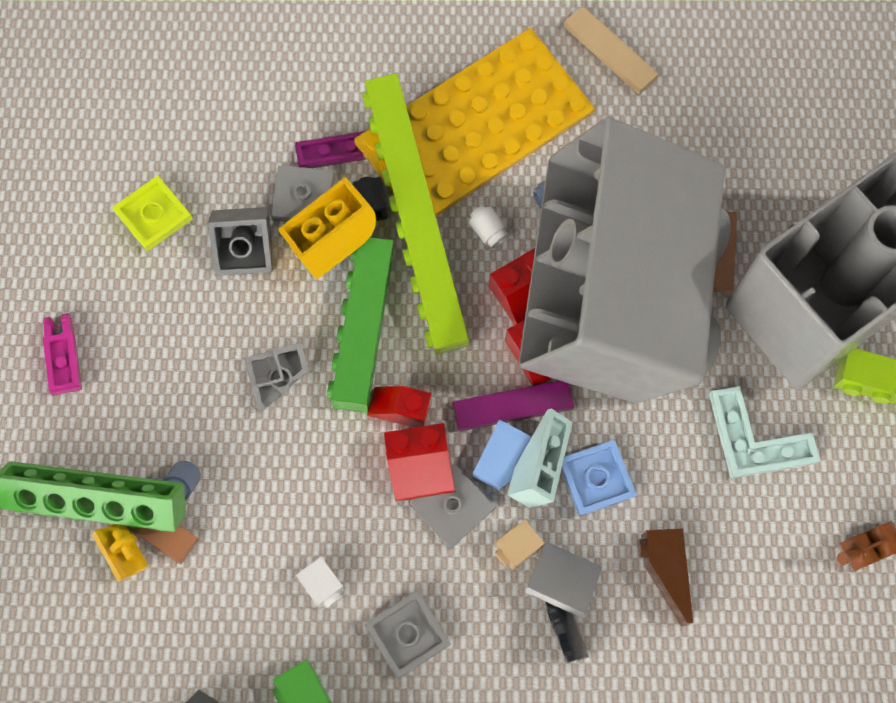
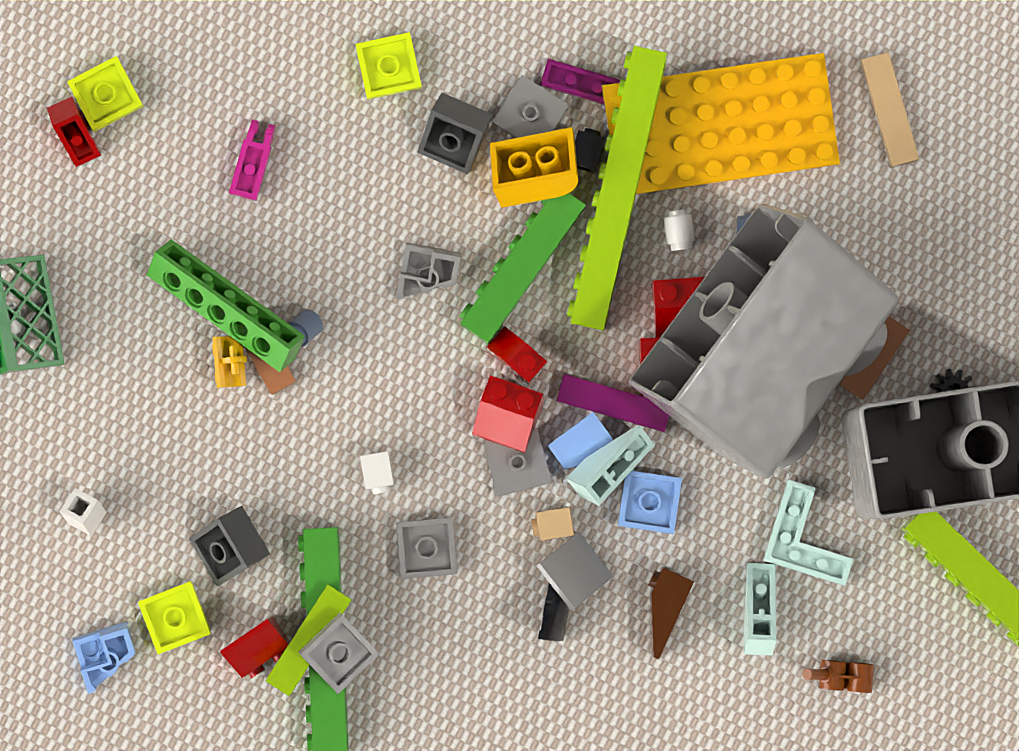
camera: 30 degrees right, 15 degrees up
(758, 526) = (760, 609): none -> light aqua slope

